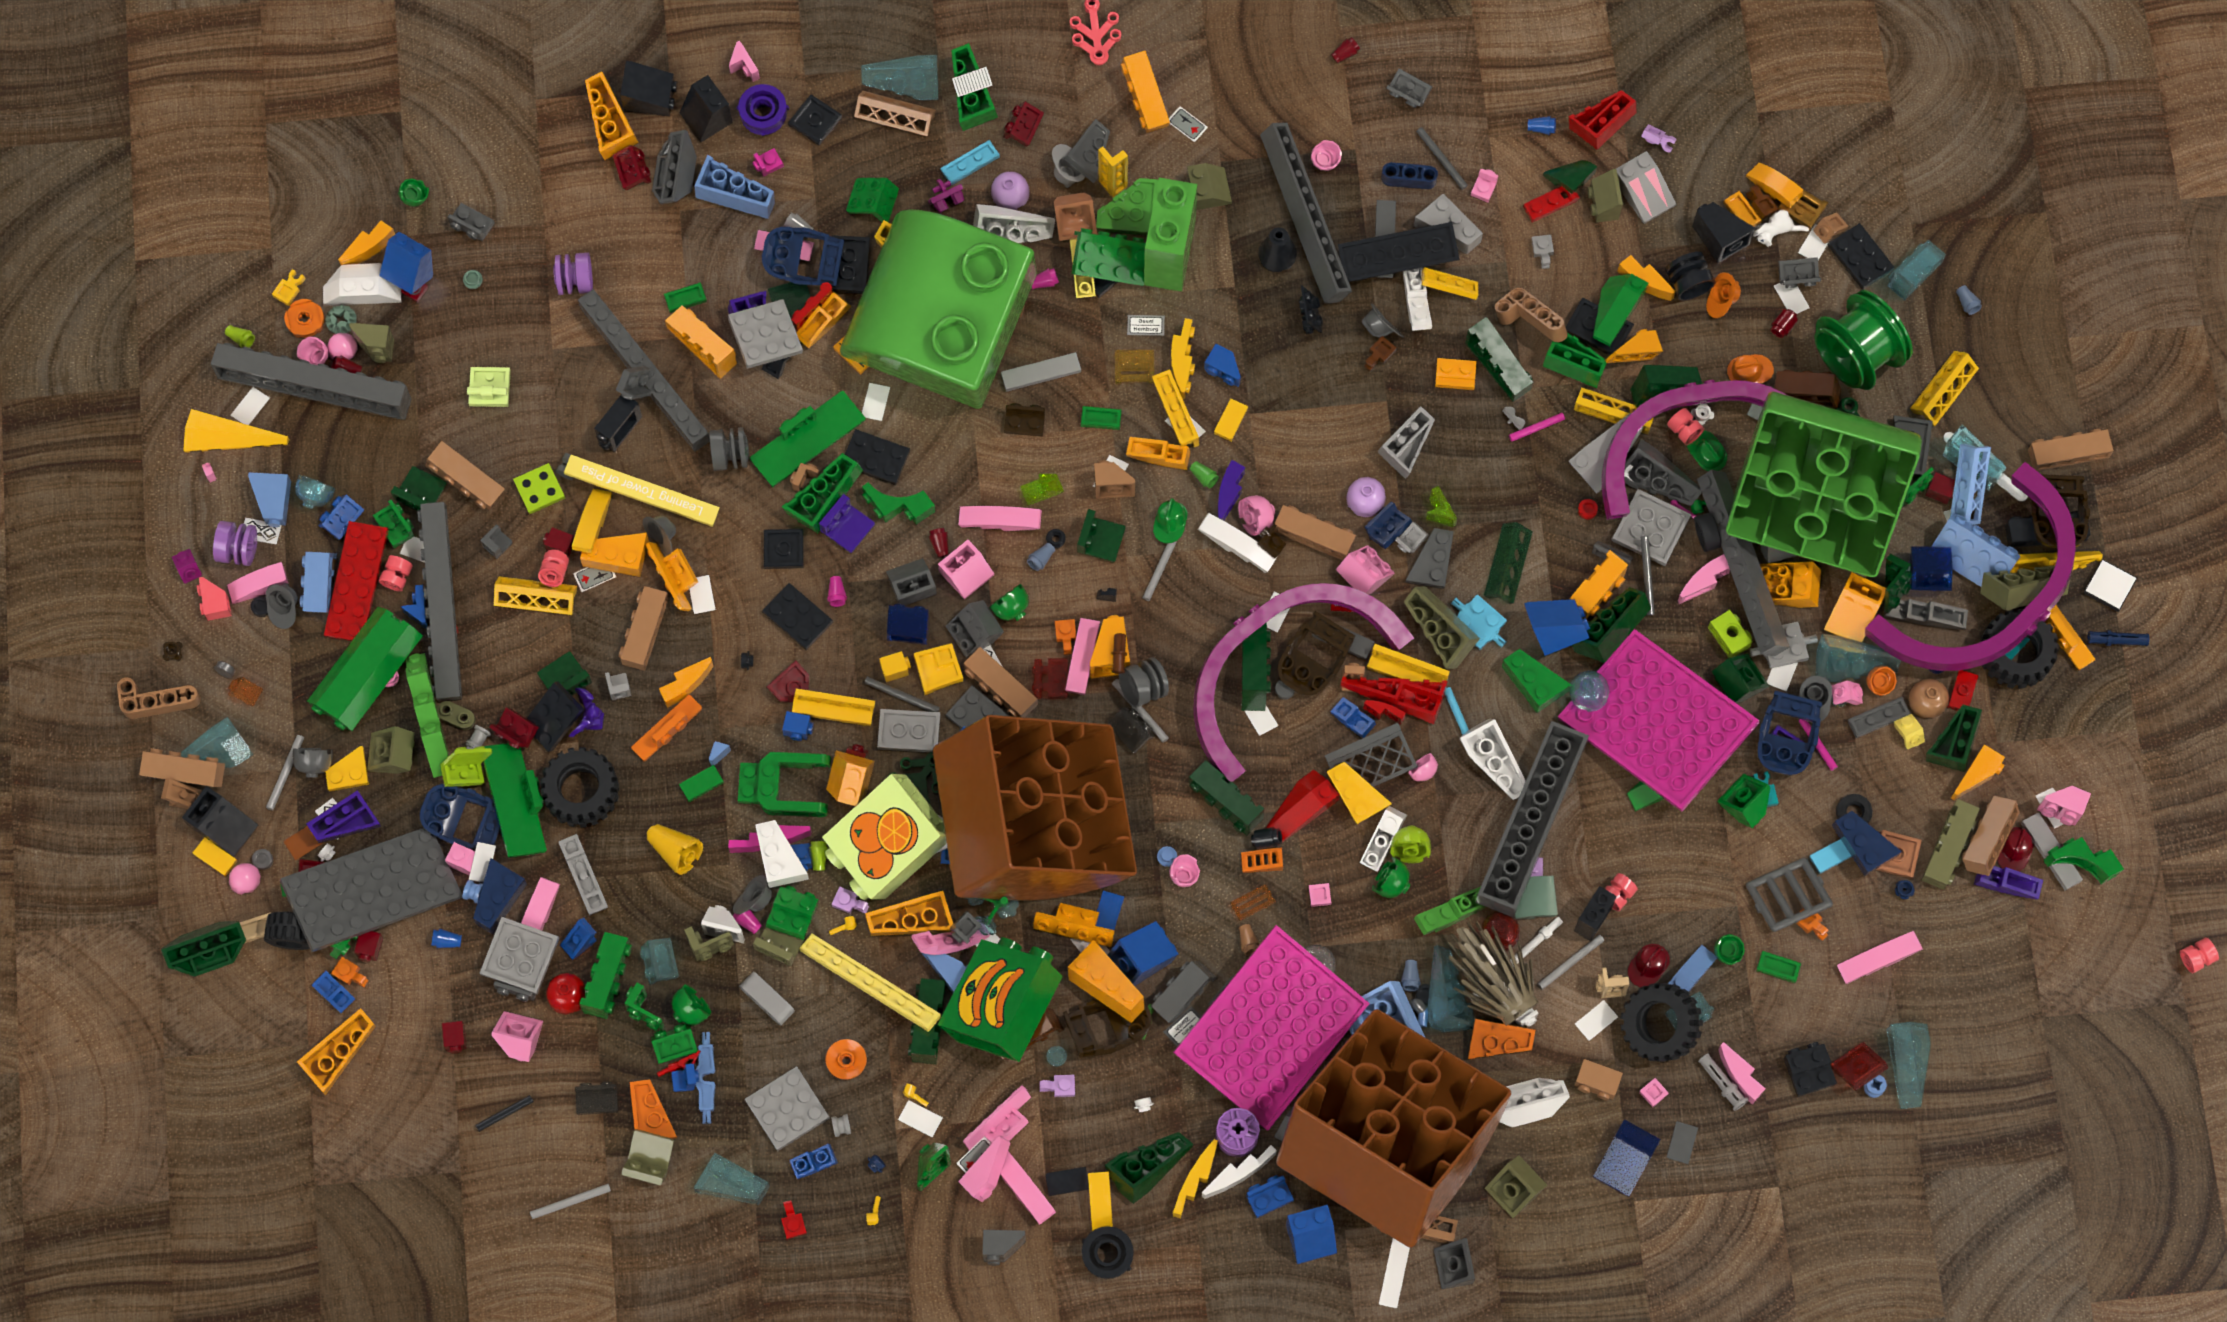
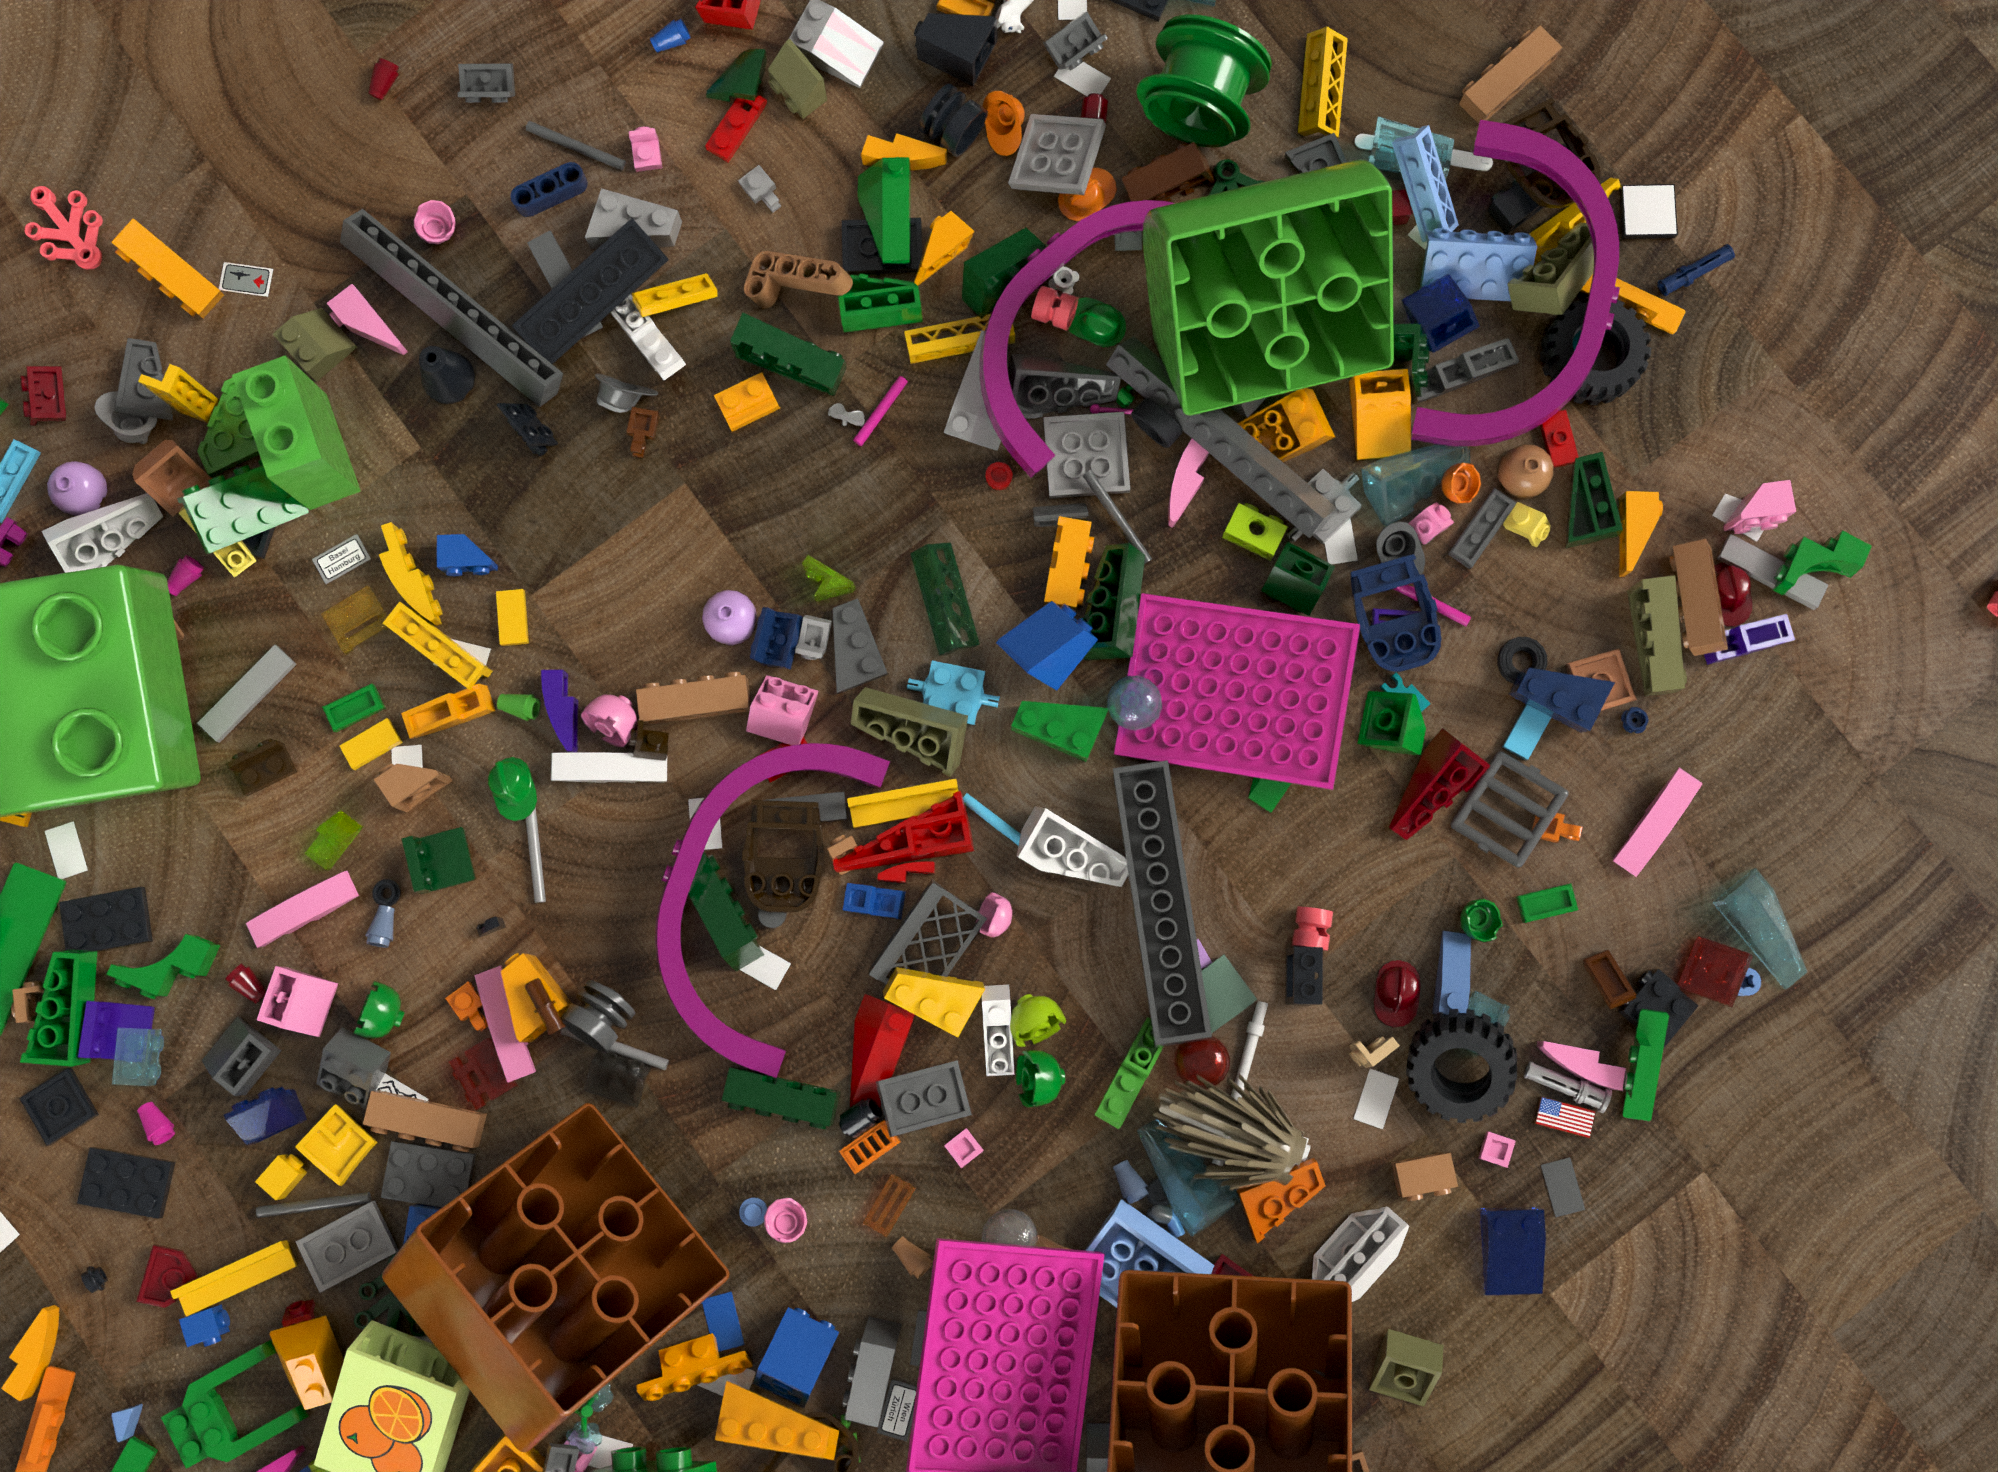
camera: 30 degrees left, 10 degrees up
(850, 545) = (137, 1056): none -> clear light blue bracket
(1098, 445) = (370, 744): none -> yellow tile
(1245, 188) = (360, 318): none -> bright pink slope
(1313, 849) = (923, 1098): none -> dark grey plate
(1405, 444) = (738, 524): light grey wedge -> none
(1570, 962) = (1304, 1050): light grey bar -> none
(1709, 1100) = (1564, 1117): none -> tile
(1744, 333) = (1057, 154): none -> light grey plate
(1756, 850) = (1439, 776): none -> dark red wedge
(1778, 1094) = (1645, 1064): none -> green bracket
(1789, 1032) = (1609, 979): none -> reddish brown tile

